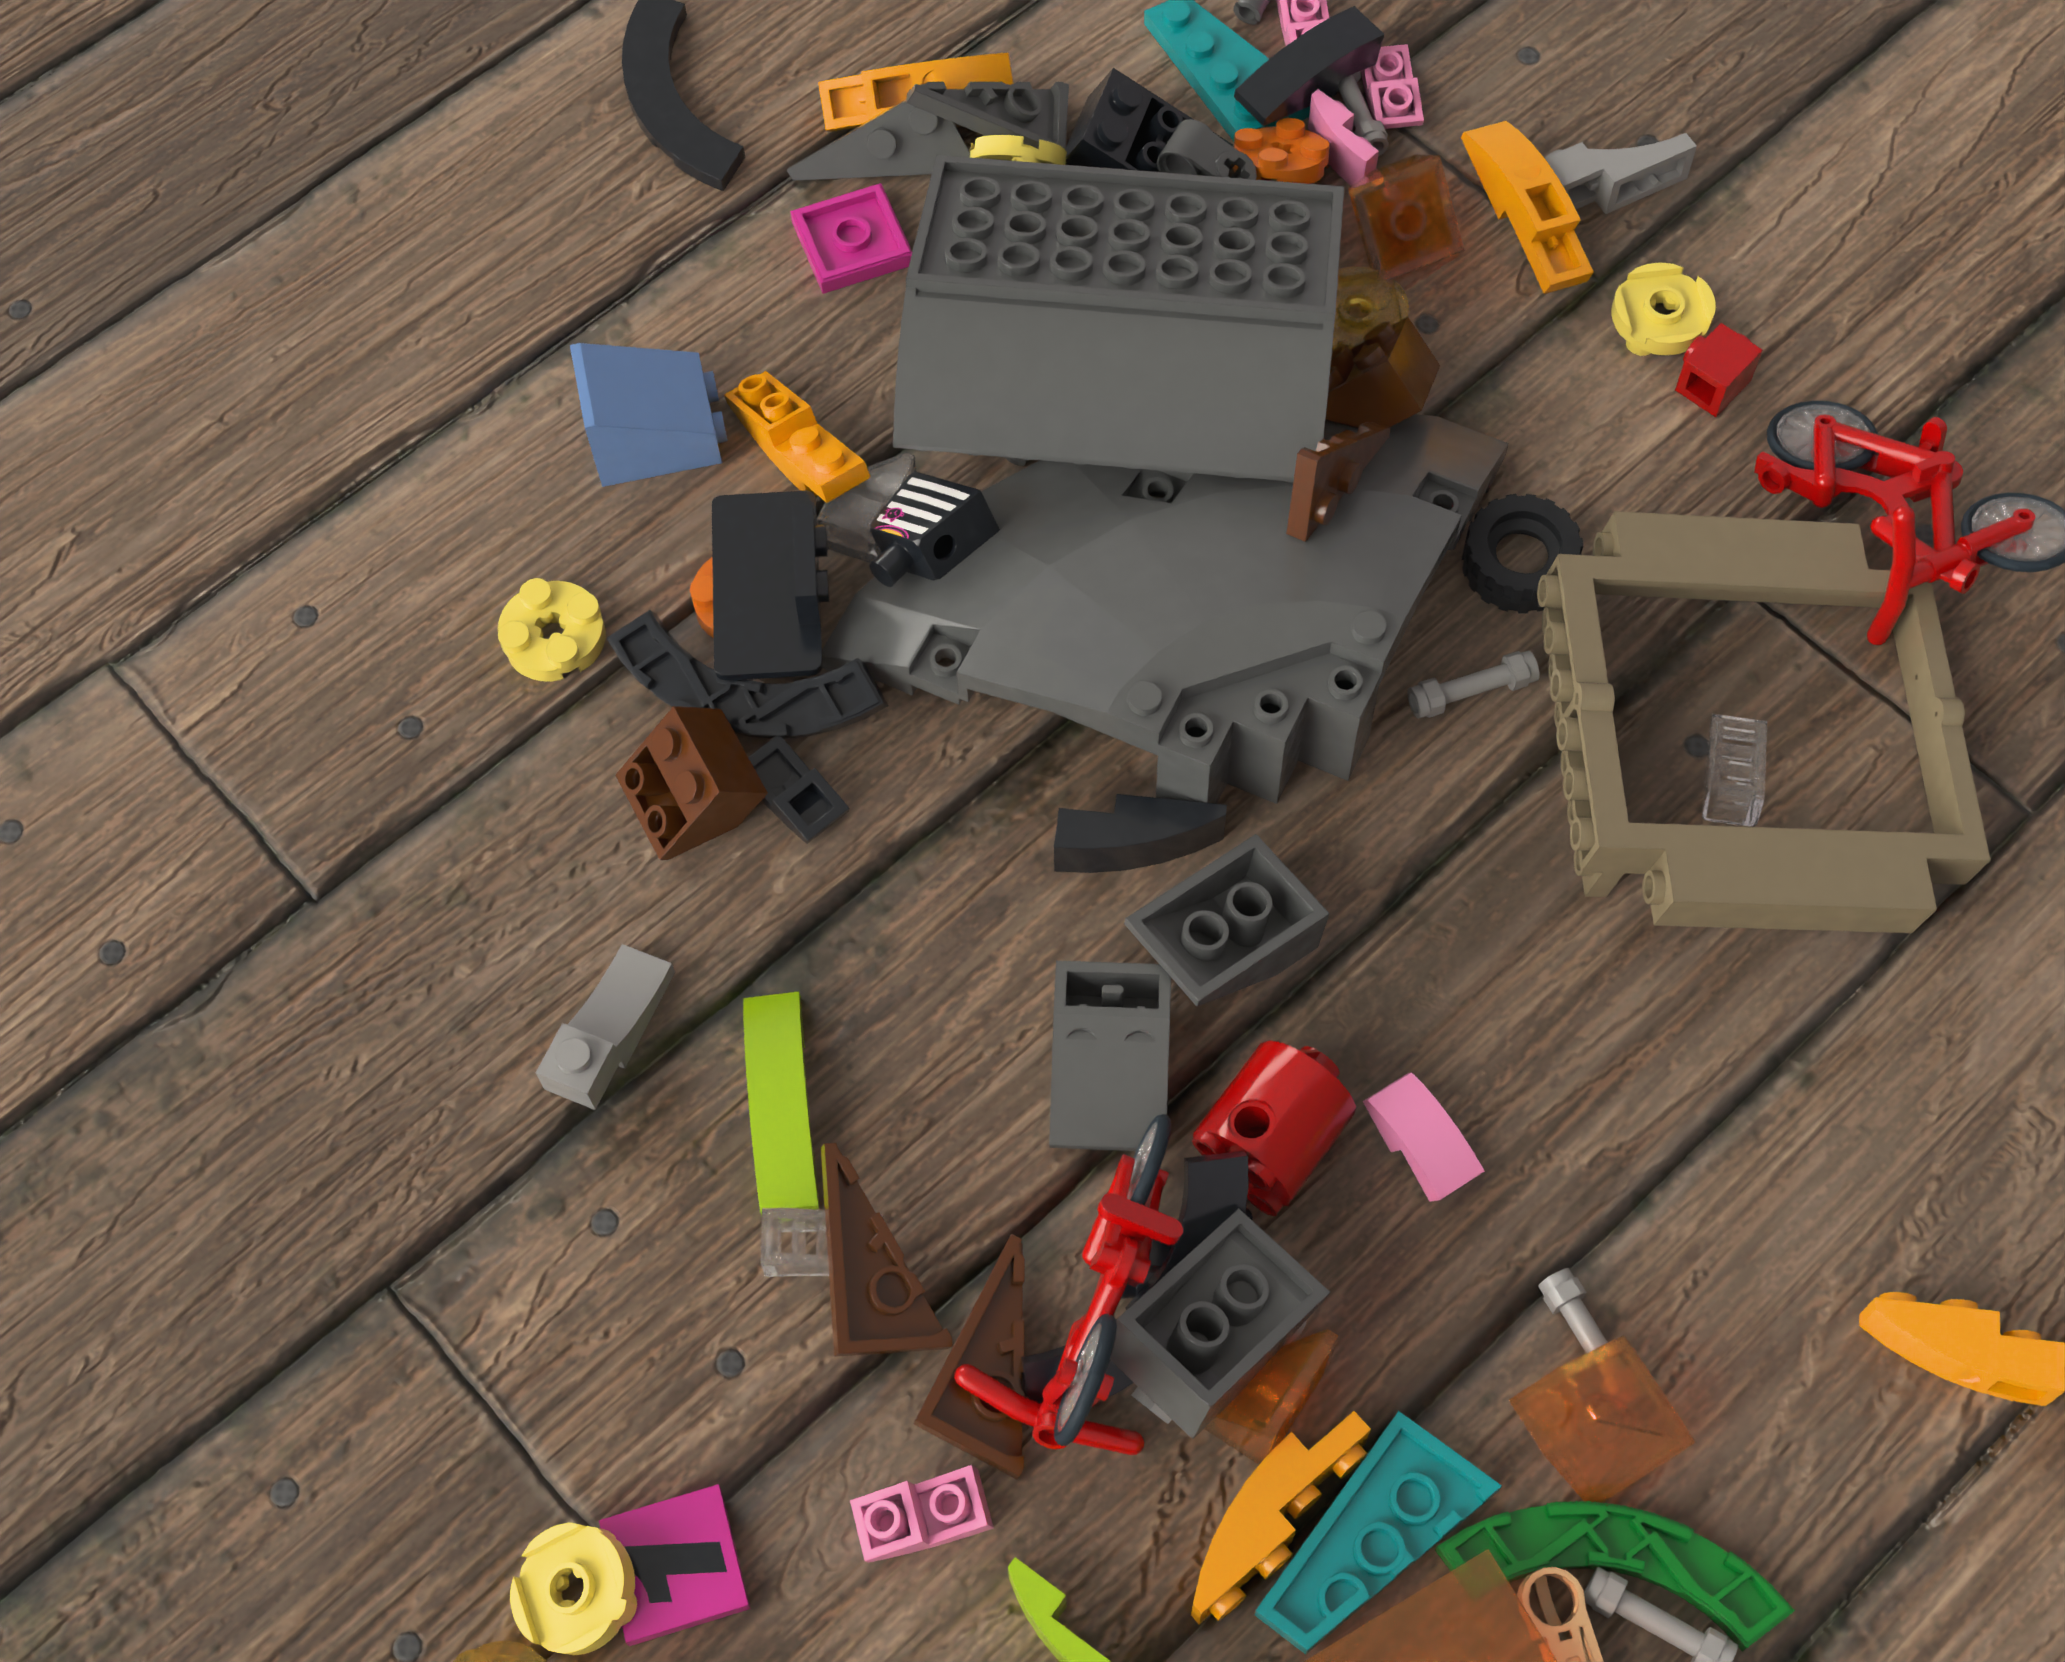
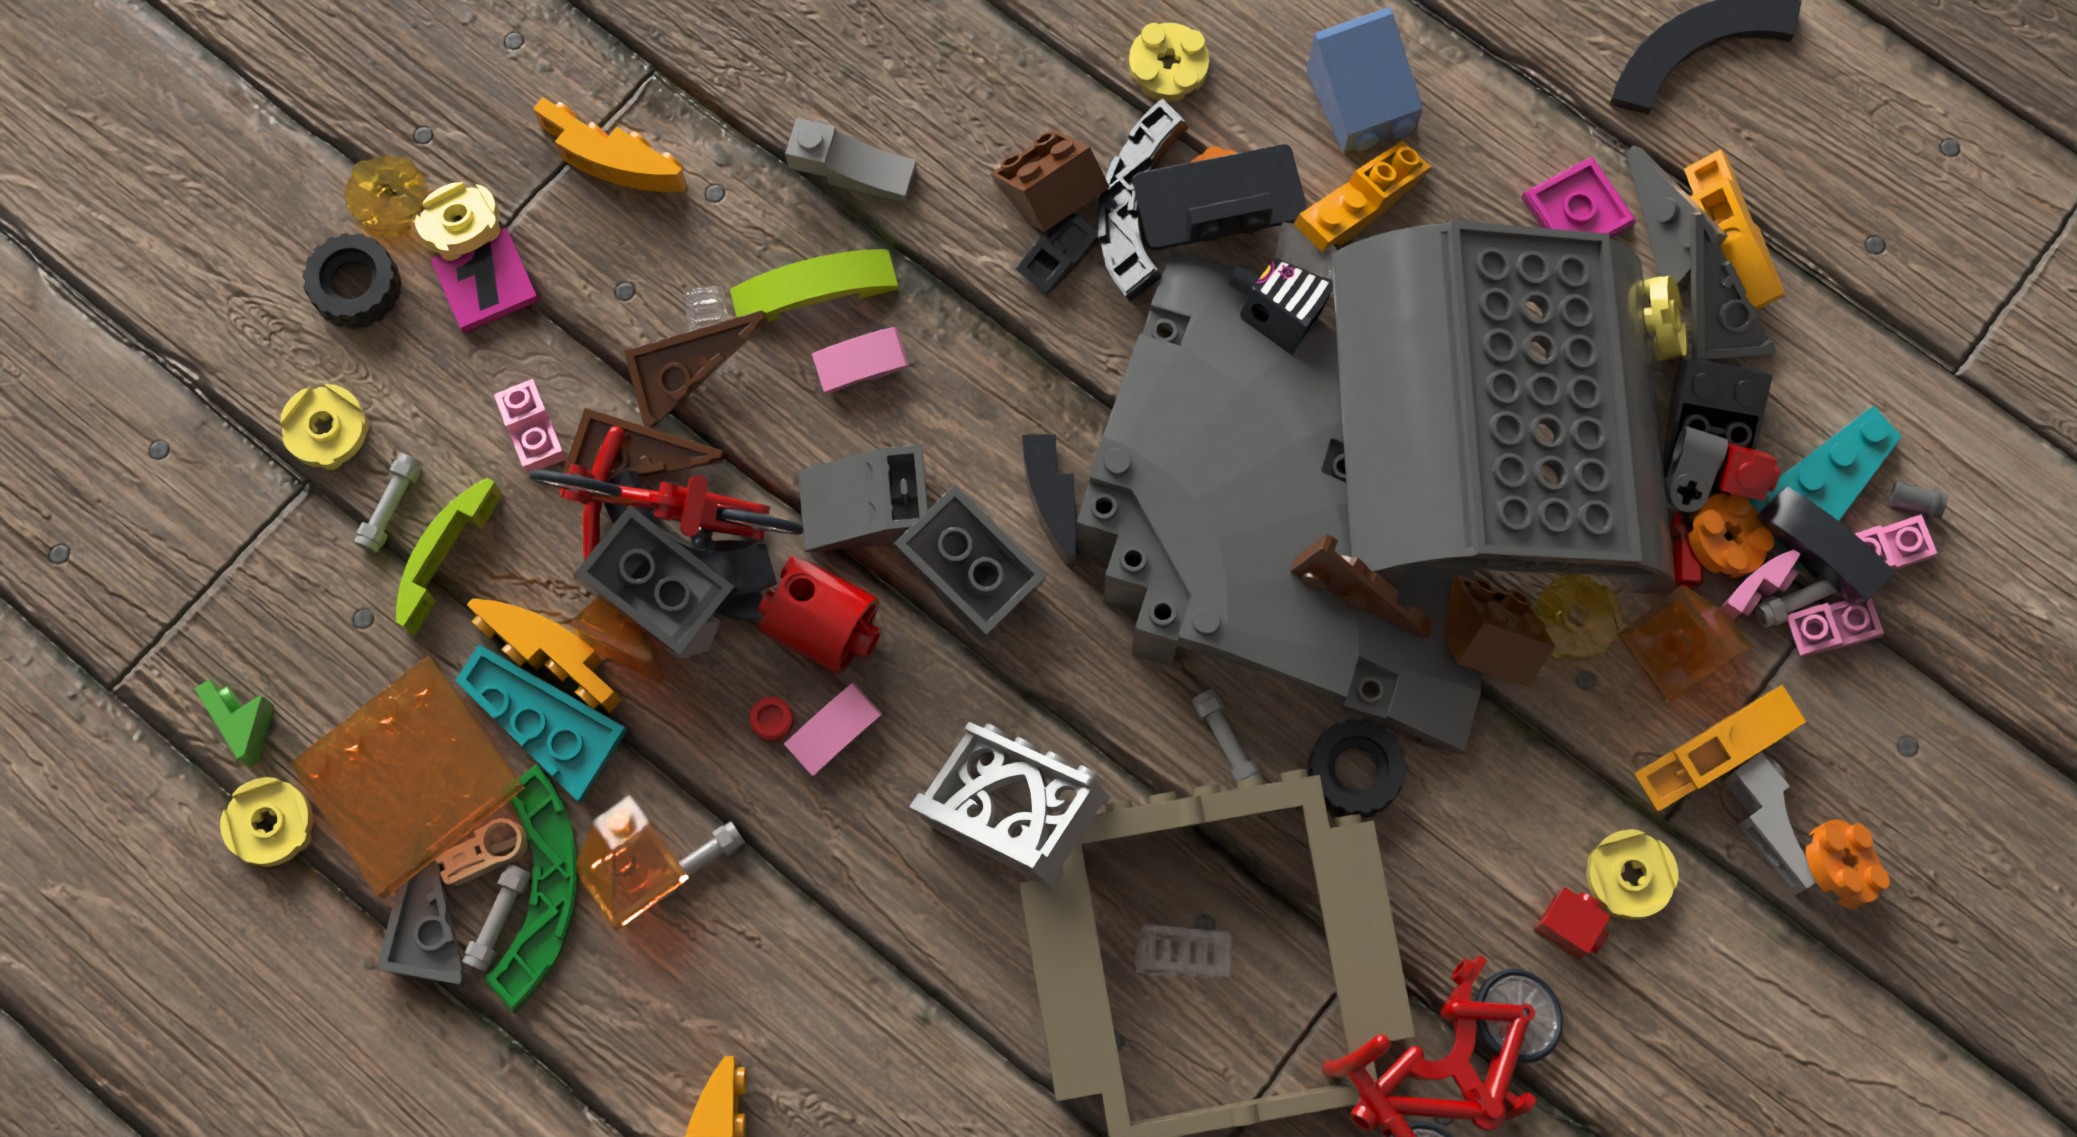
camera: 80 degrees right, 10 degrees up
(530, 1339) = (612, 158): none -> light orange slope
(903, 1045) = (860, 359): none -> bright pink slope
(1224, 108) = (1747, 472): none -> red brick
(1396, 1220) = (771, 719): none -> red tile
(1636, 887) = (1030, 852): none -> fence
(1666, 114) = (1860, 877): none -> orange plate

